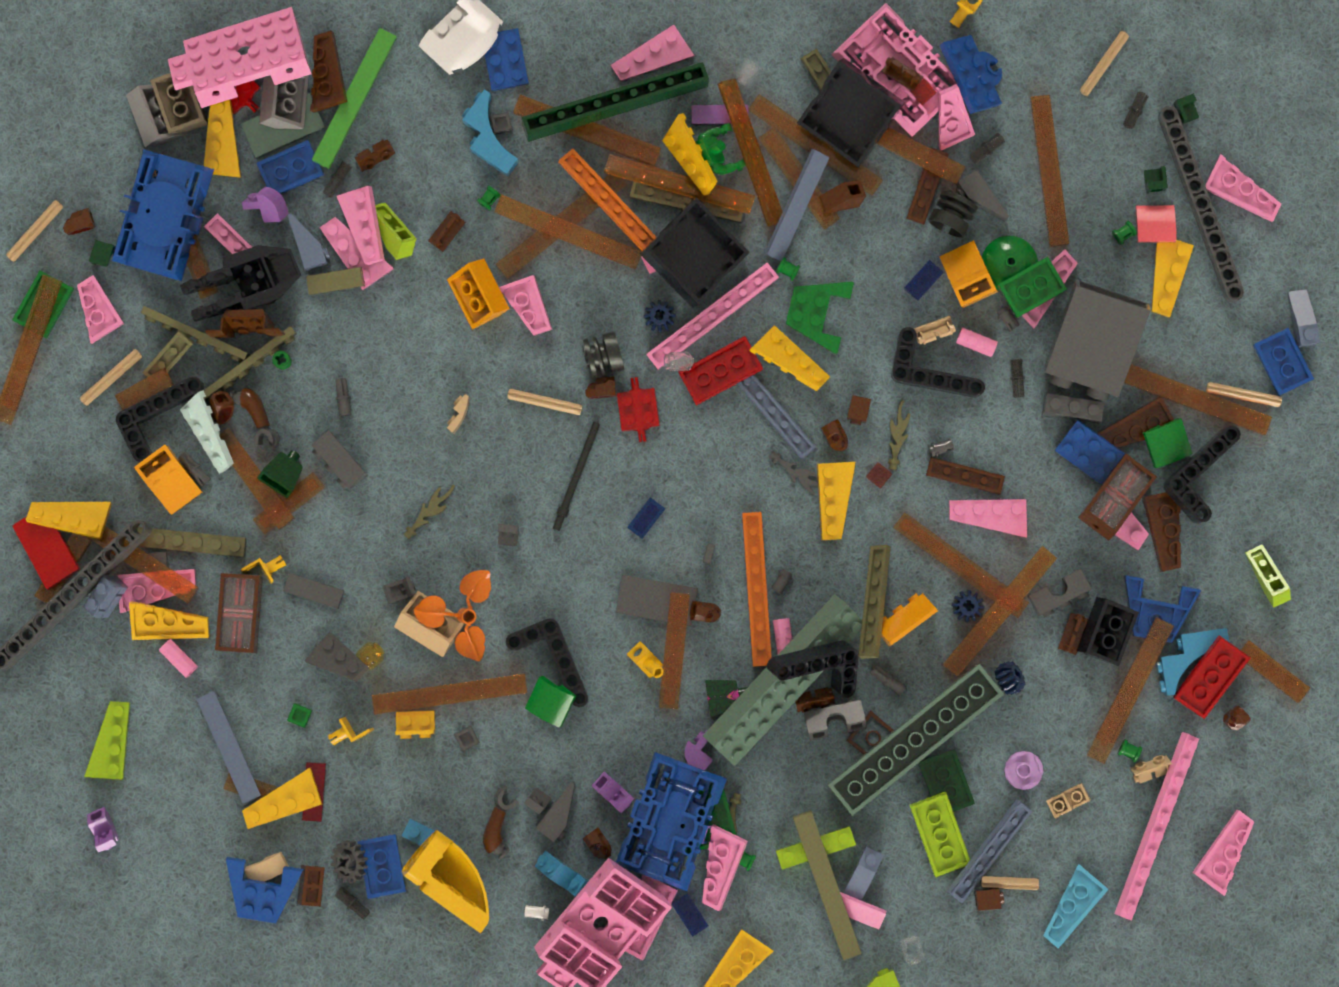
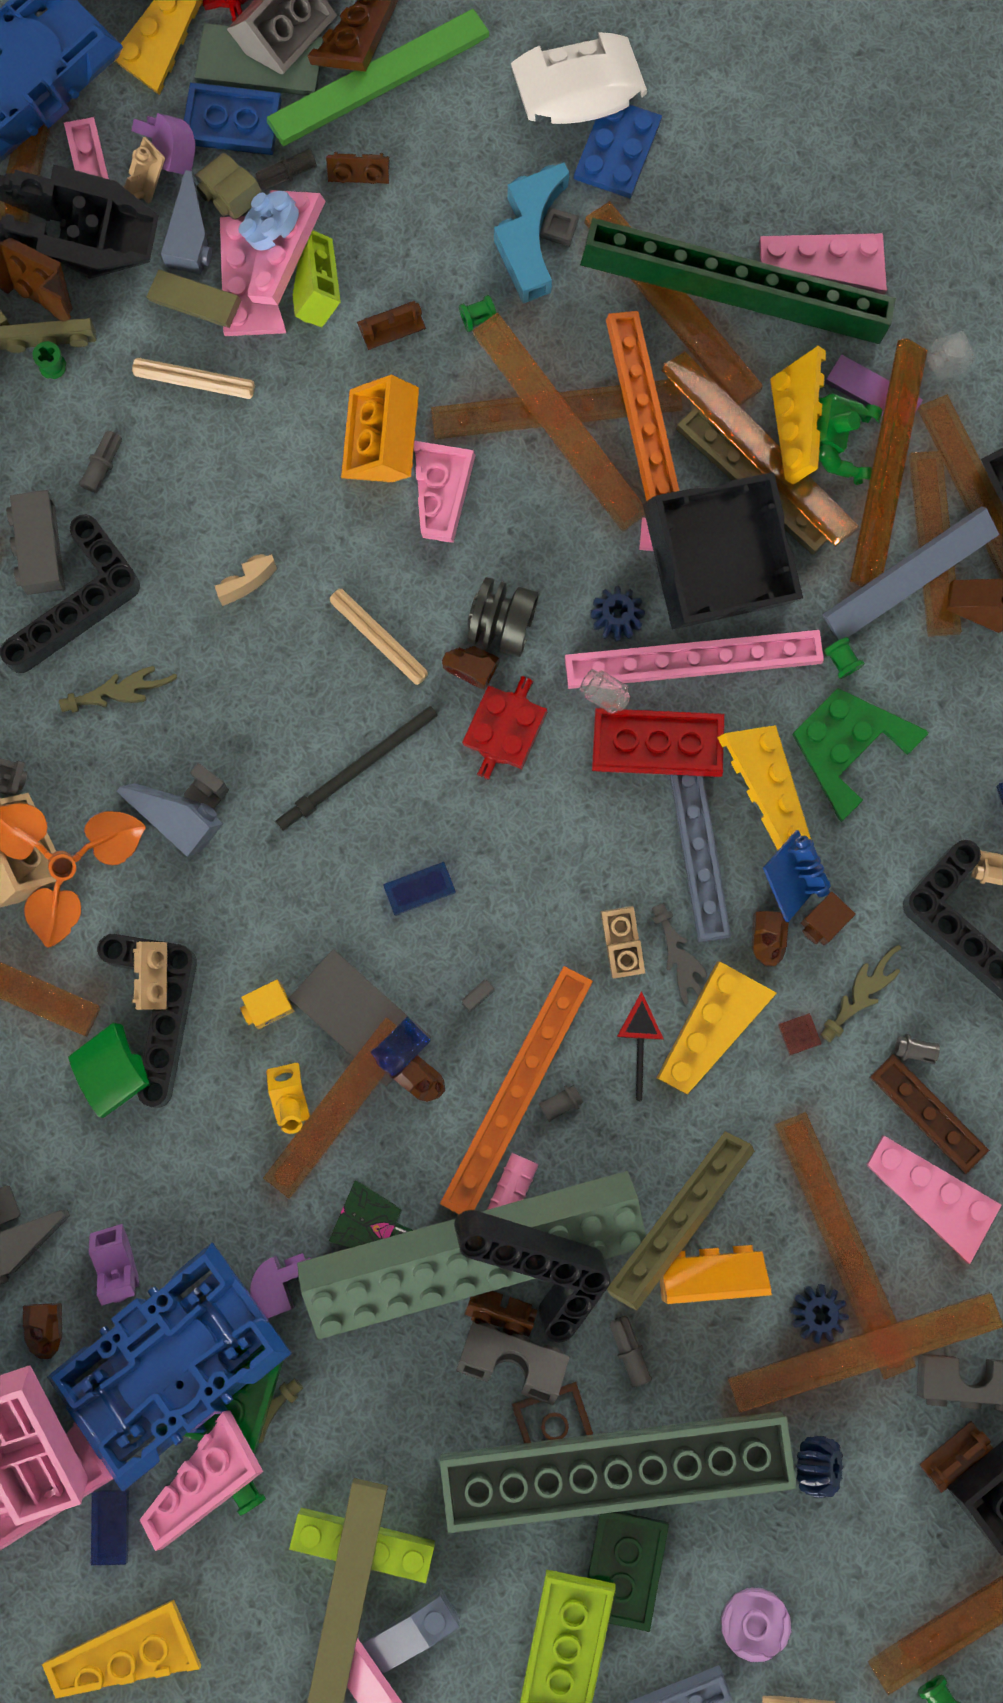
camera: 25 degrees right, 5 degrees down
(266, 229) = (144, 171): none -> tan hinge
(314, 208) = (227, 186): none -> olive brick
(342, 211) = (268, 219): none -> light blue plate
(361, 323) = (193, 378): none -> tan axle
(381, 478) = (76, 603): none -> black beam
(504, 557) = (179, 819): none -> sand blue slope
(547, 650) = (151, 964): none -> tan hinge
(607, 622) = (266, 1005): none -> yellow brick
(687, 602) = (400, 1047): none -> clear blue bracket
(764, 483) = (622, 942): none -> tan slope
(797, 519) = (640, 1025): none -> piece
(829, 397) = (796, 874): none -> blue hinge

